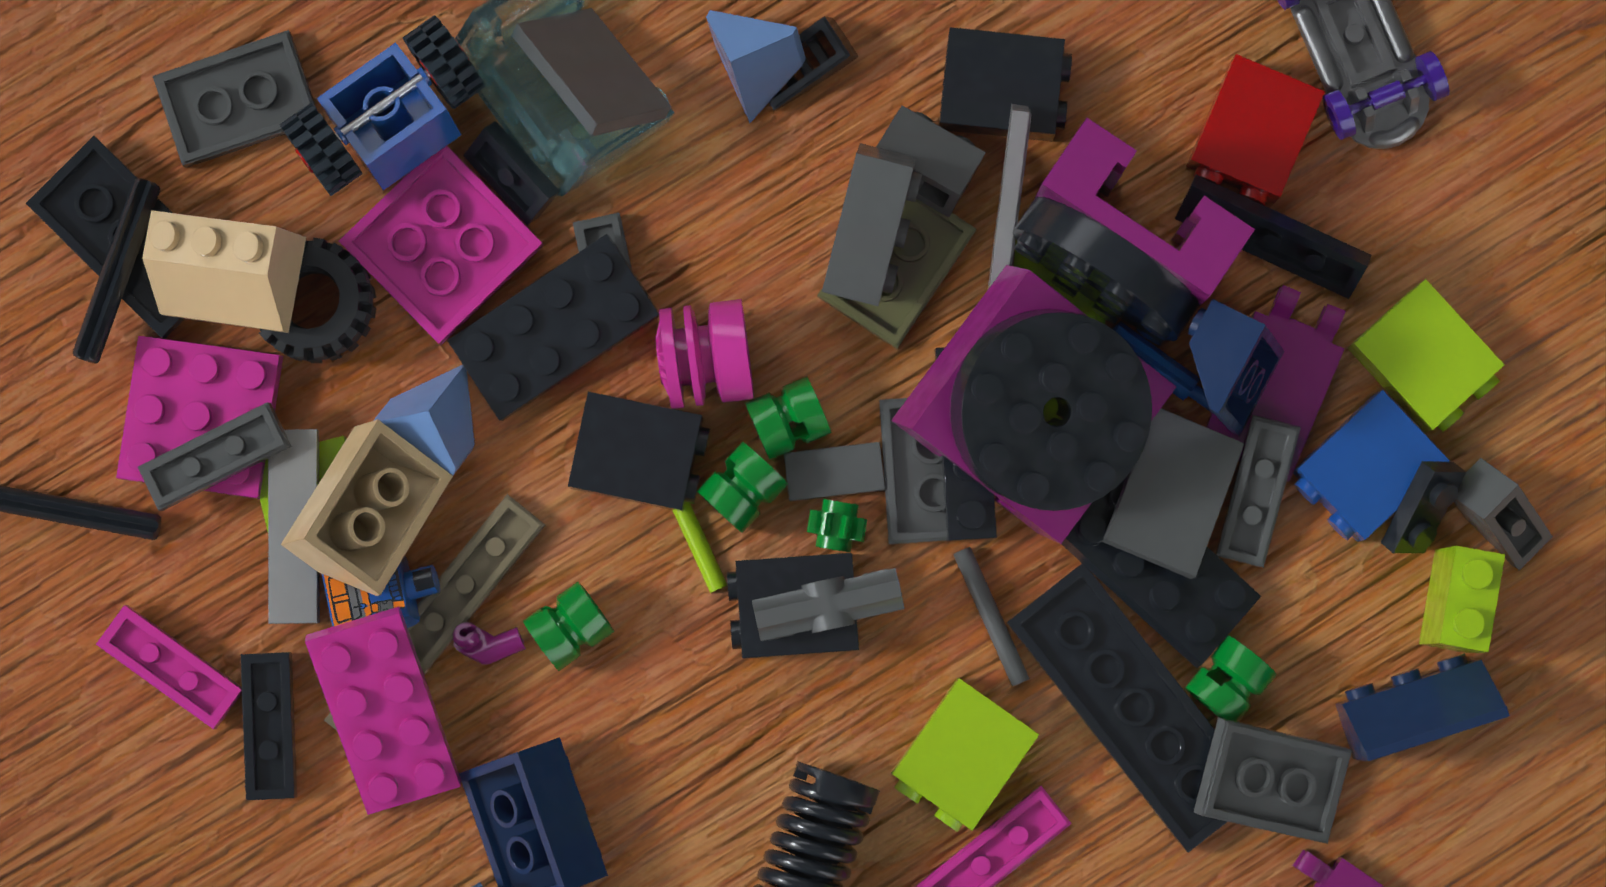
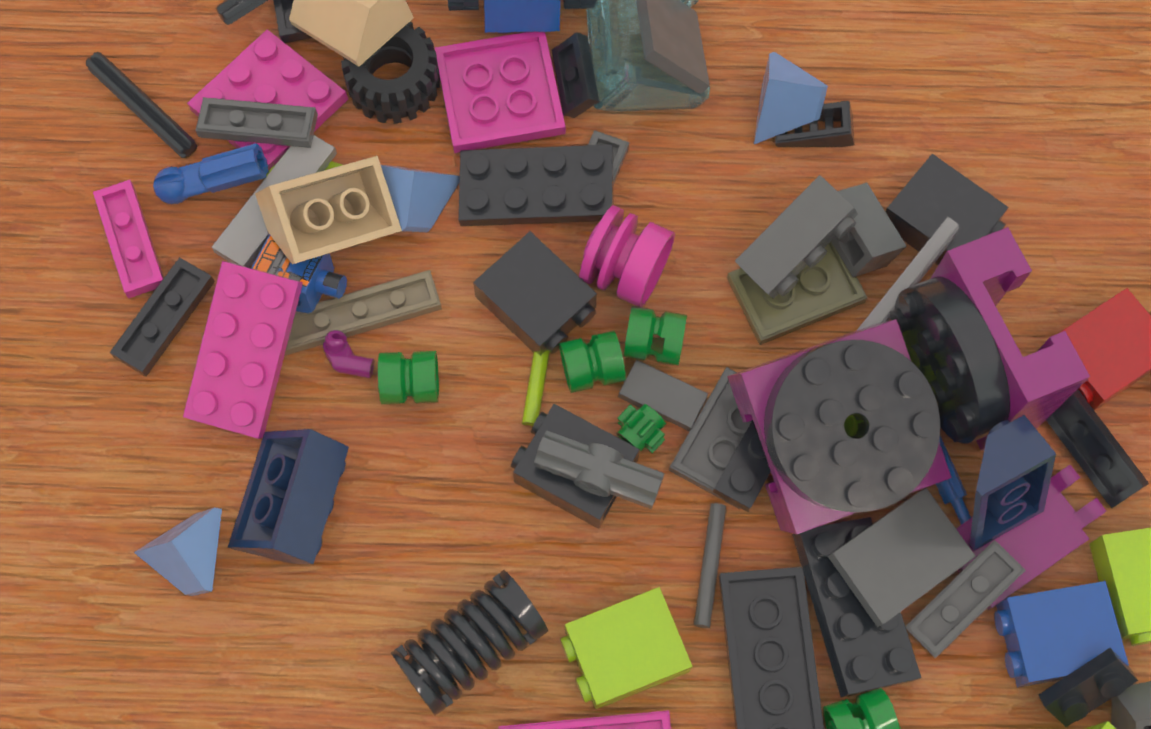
camera: 30 degrees right, 15 degrees down
(226, 525) = (211, 174): none -> blue piece

